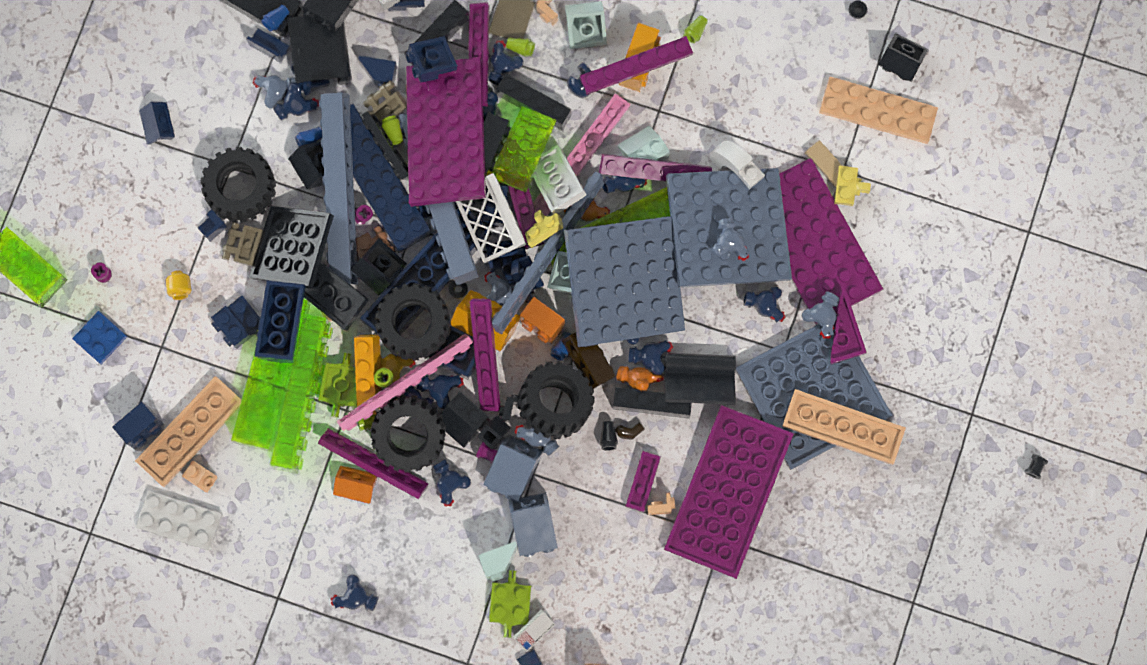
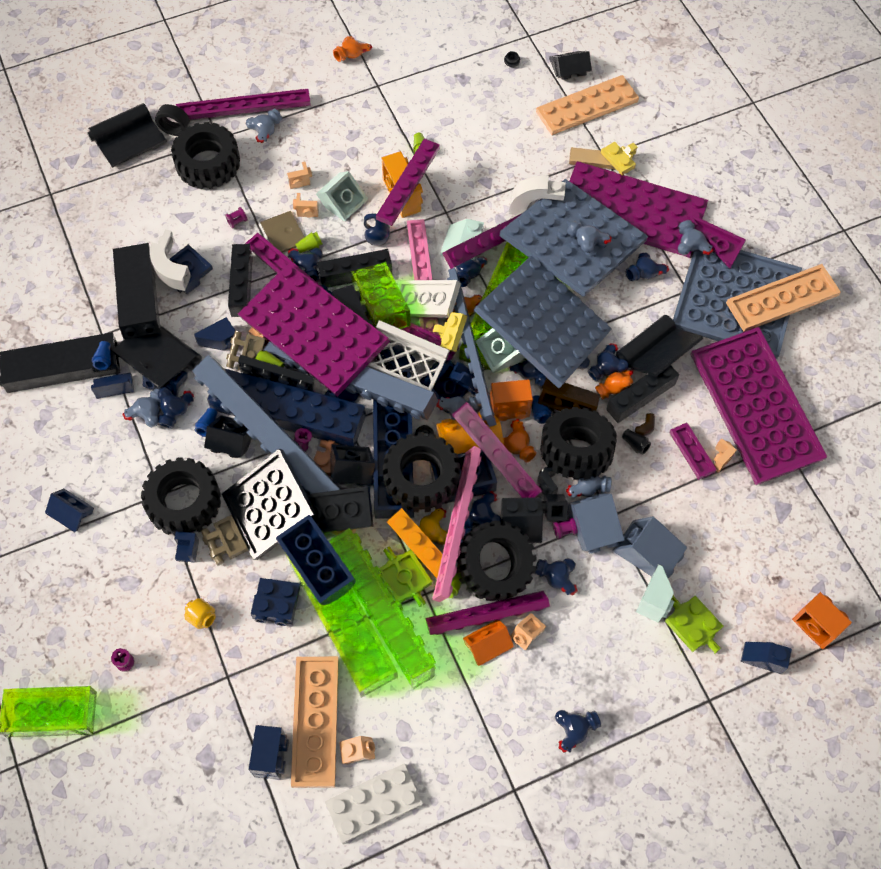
camera: 45 degrees left, 15 degrees down
(99, 337) = (167, 714): blue plate -> none
(380, 374) = (437, 530): lime cone -> none
(389, 501) = (527, 631): none -> light nougat bracket
(430, 59) = (253, 288): dark blue plate -> none
(519, 357) = (519, 441): none -> orange animal
(534, 630) = (732, 626): white tile -> none

